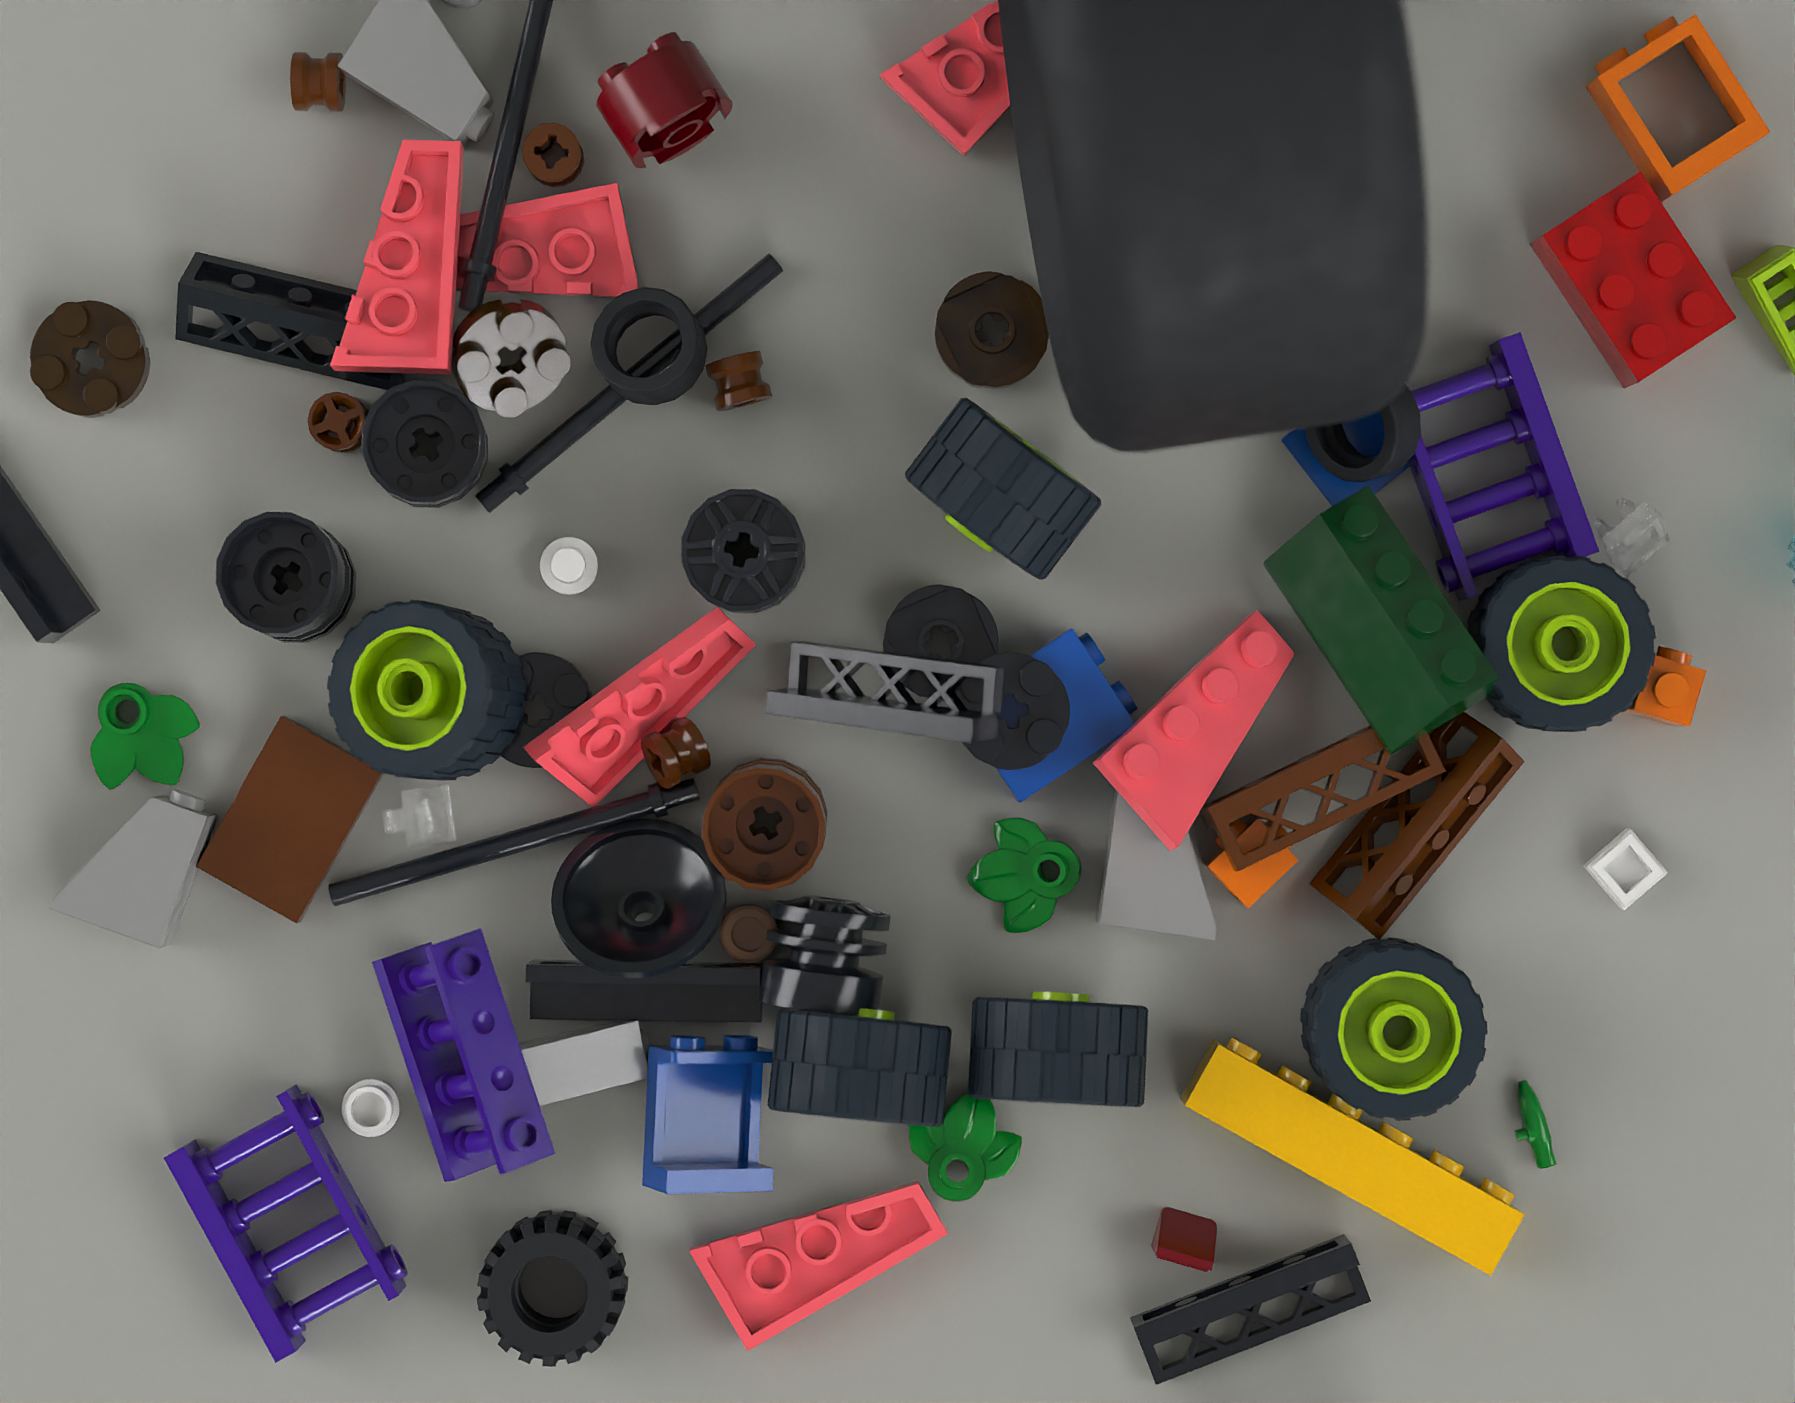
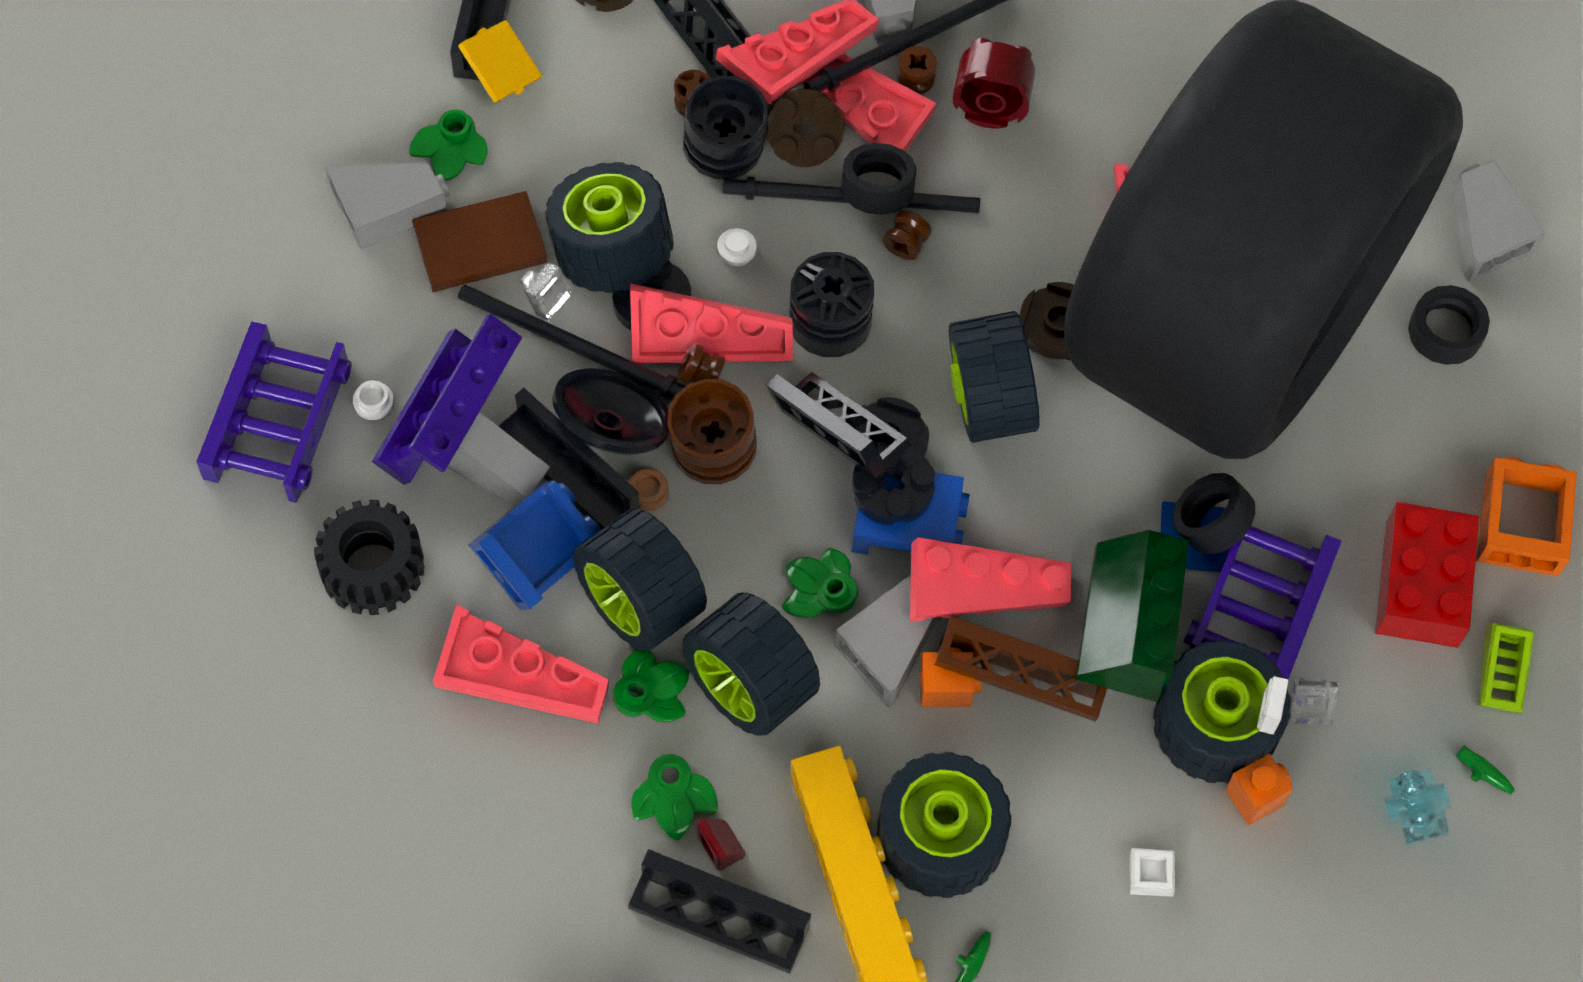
camera: 40 degrees right, 25 degrees down
(95, 591) = (500, 61): none -> yellow piece
(253, 570) = (595, 122): black wheel -> none
(824, 956) = (685, 508): black wheel -> none
(1102, 1239) = (675, 802): none -> green plate
(1428, 836) = (1057, 746): reddish brown fence -> none
(1629, 619) = (1272, 705): none -> white tile

